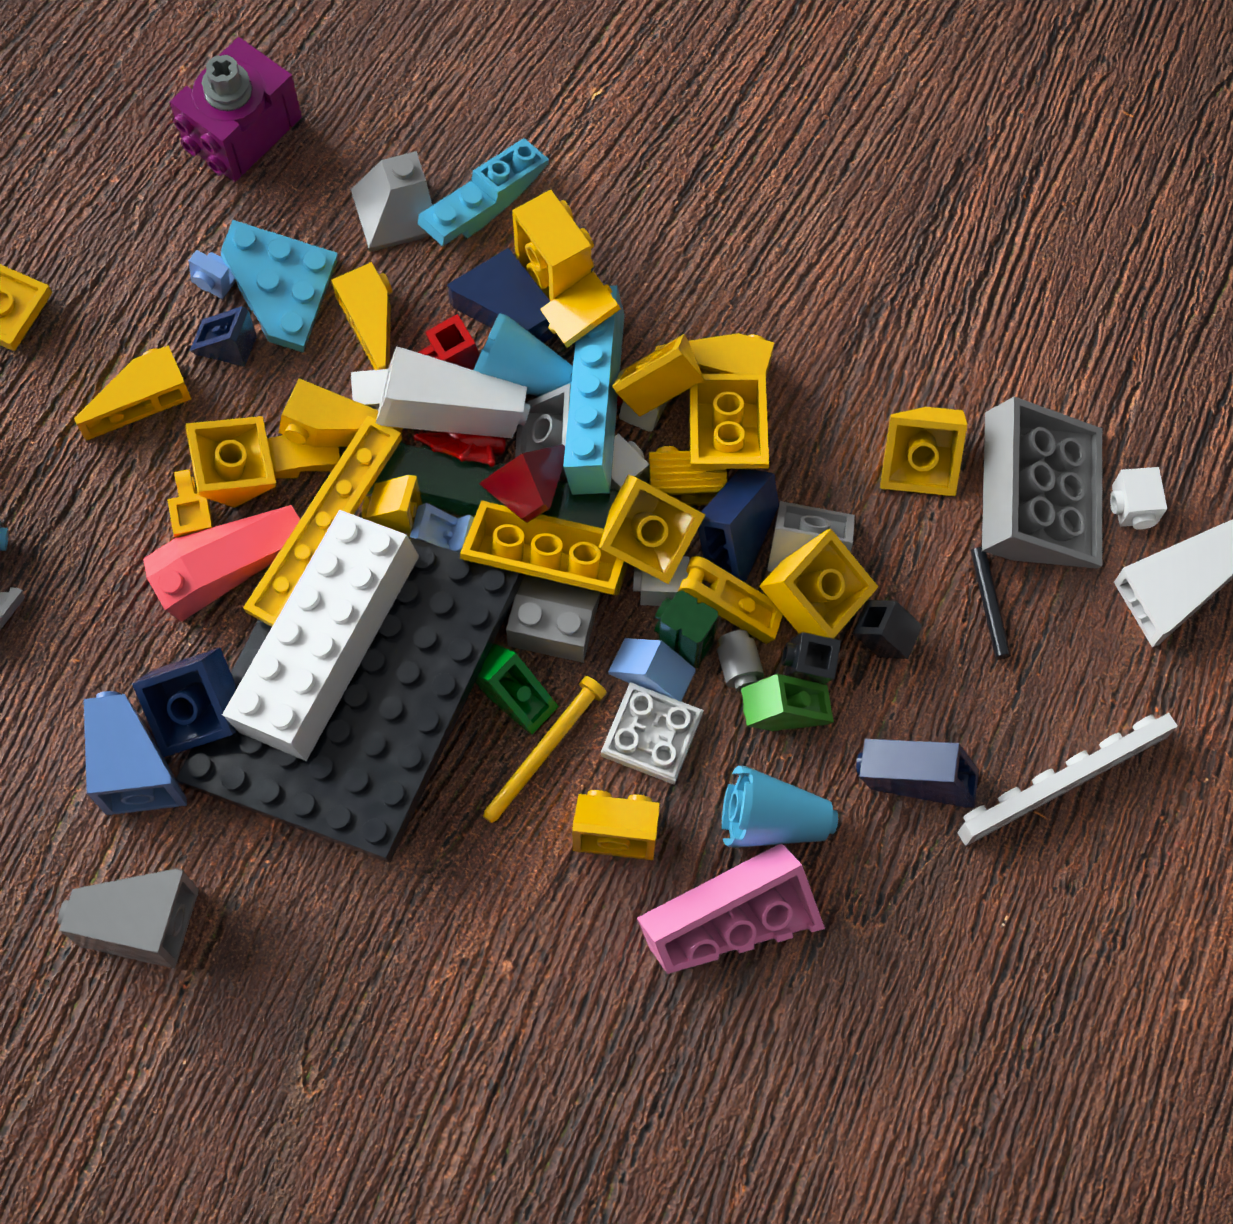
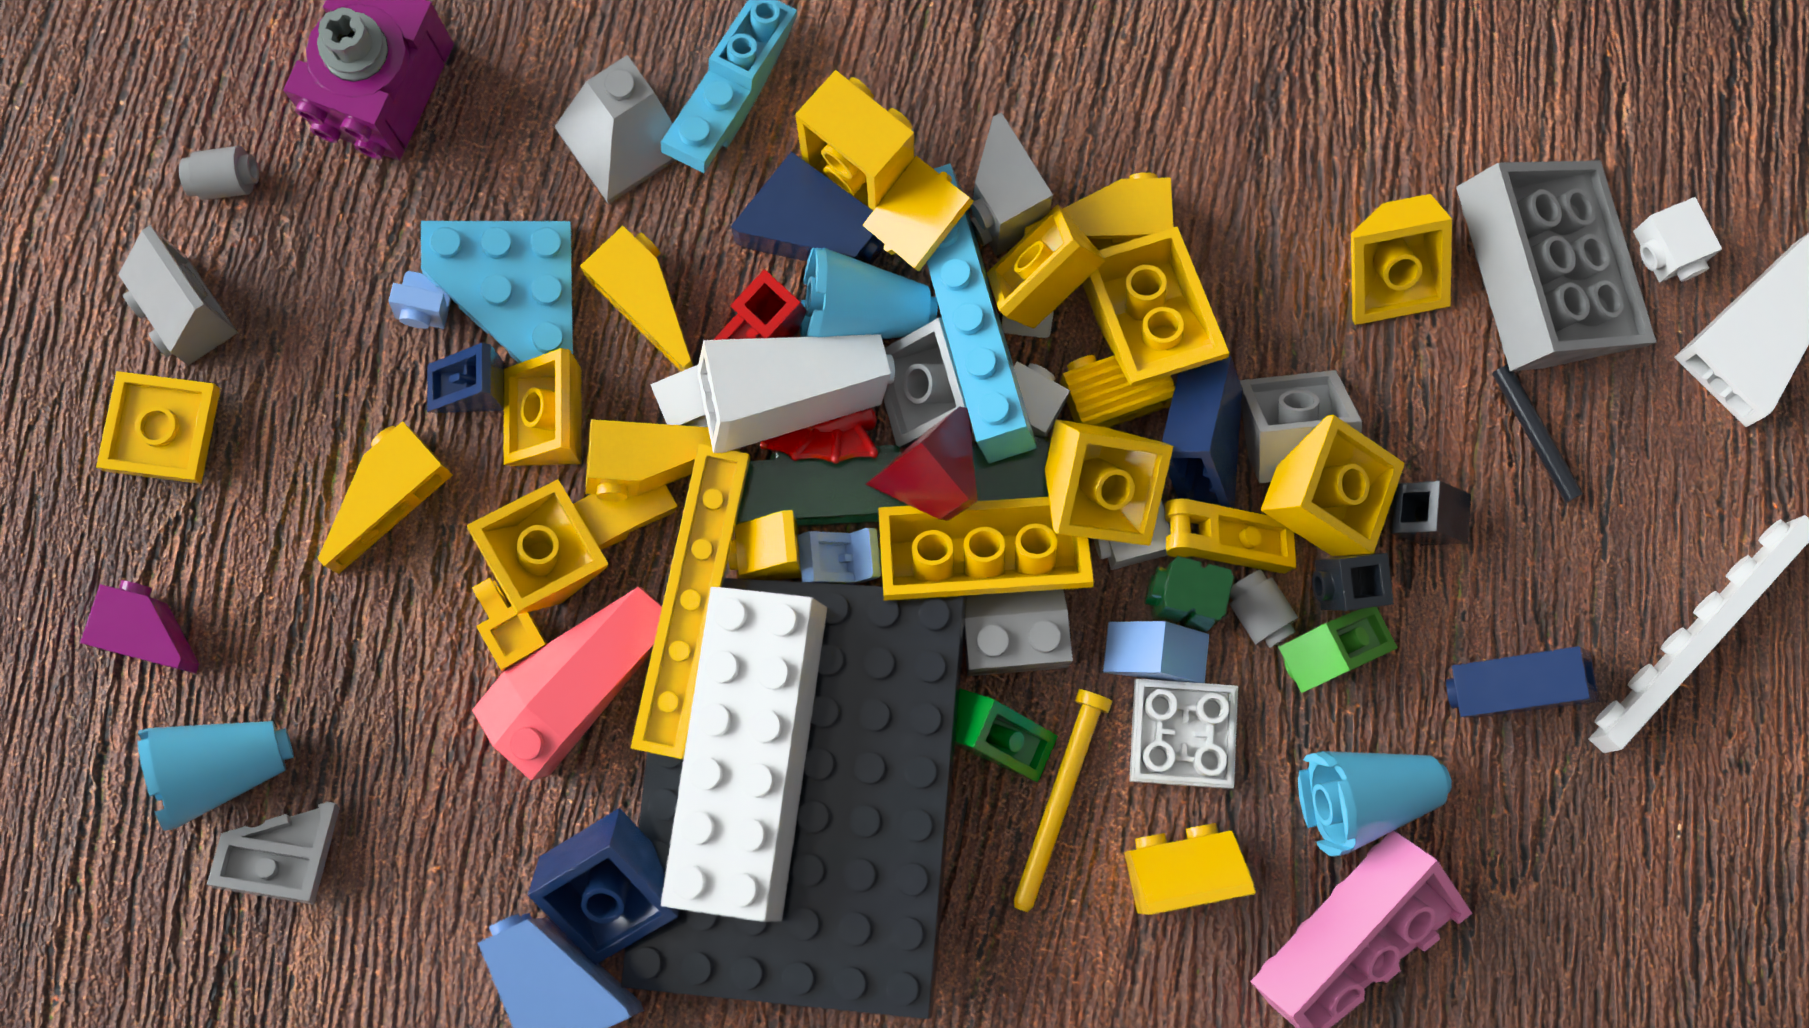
camera: 15 degrees left, 10 degrees up
(43, 222) = (173, 299): none -> light grey slope
(106, 151) = (218, 173): none -> light grey brick
(271, 371) = (543, 411): none -> yellow slope
(650, 313) = (1006, 190): none -> light grey slope

